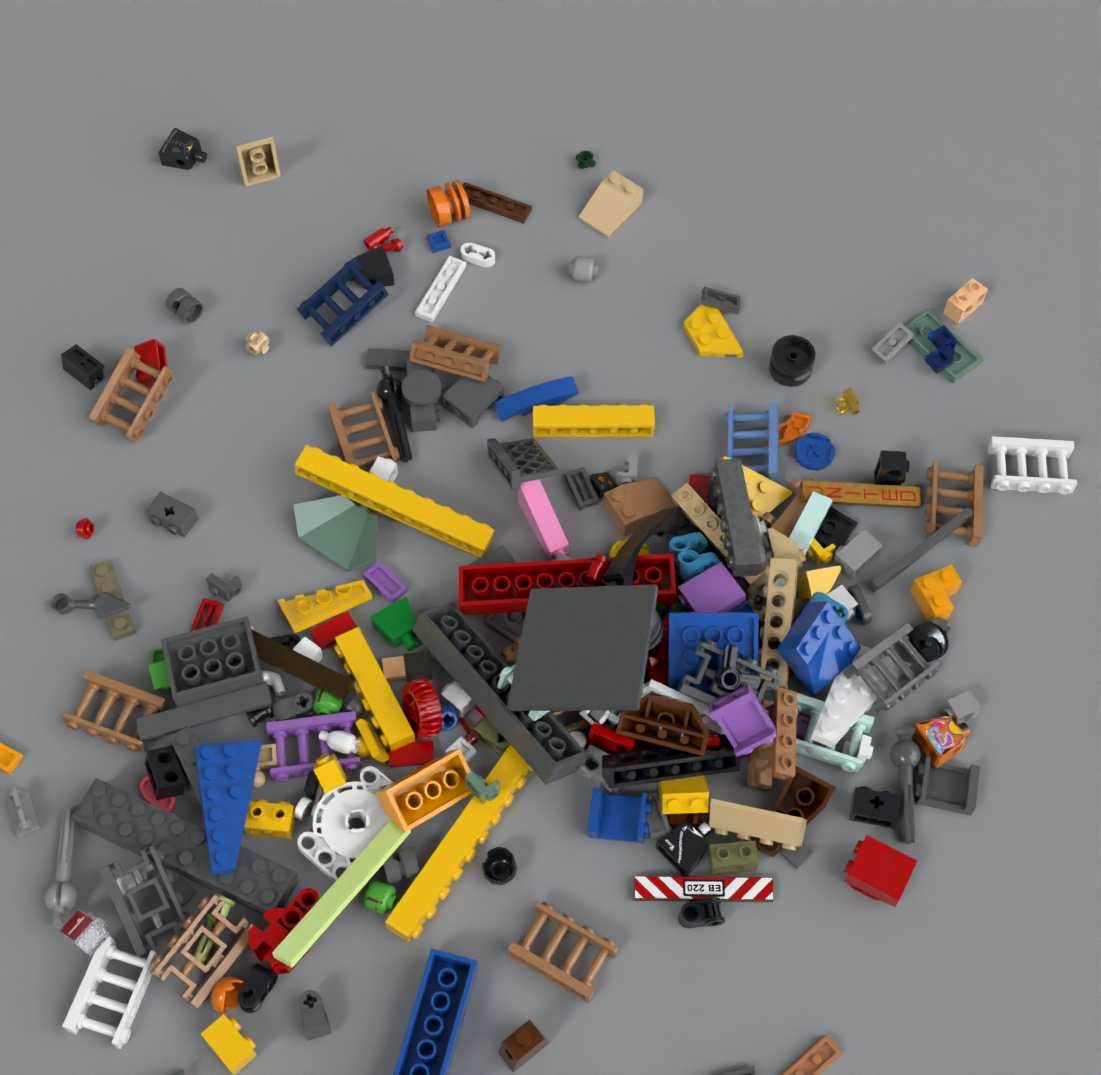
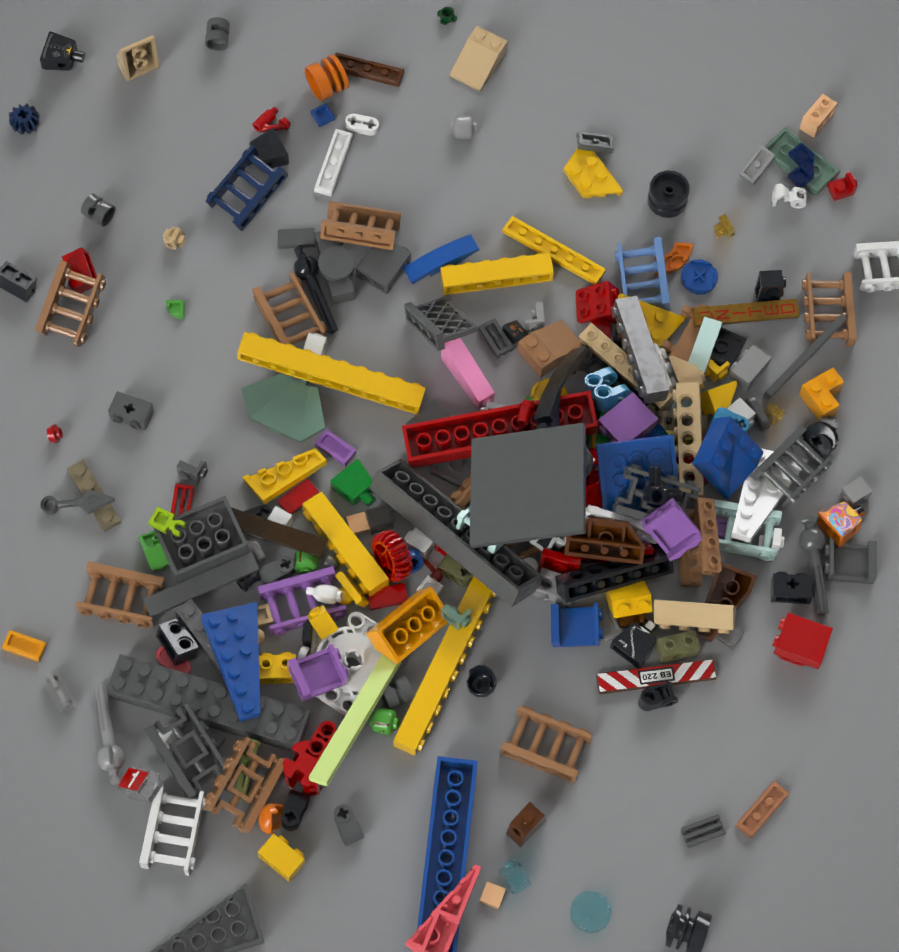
camera: 10 degrees left, 5 degrees up
(130, 208) = (24, 118): none -> dark blue gear
(173, 634) = (165, 520): none -> lime plate
(245, 415) = (176, 308): none -> bright green tile
(312, 831) = (318, 673): none -> medium lavender panel
(345, 150) = (217, 34): none -> dark grey wheel
(663, 406) = (559, 253): none -> yellow plate
(695, 463) = (596, 302): none -> red bracket
(881, 606) = (776, 412): none -> clear yellow tile
(931, 380) = (796, 197): none -> white leg
(984, 377) = (843, 187): none -> red bracket

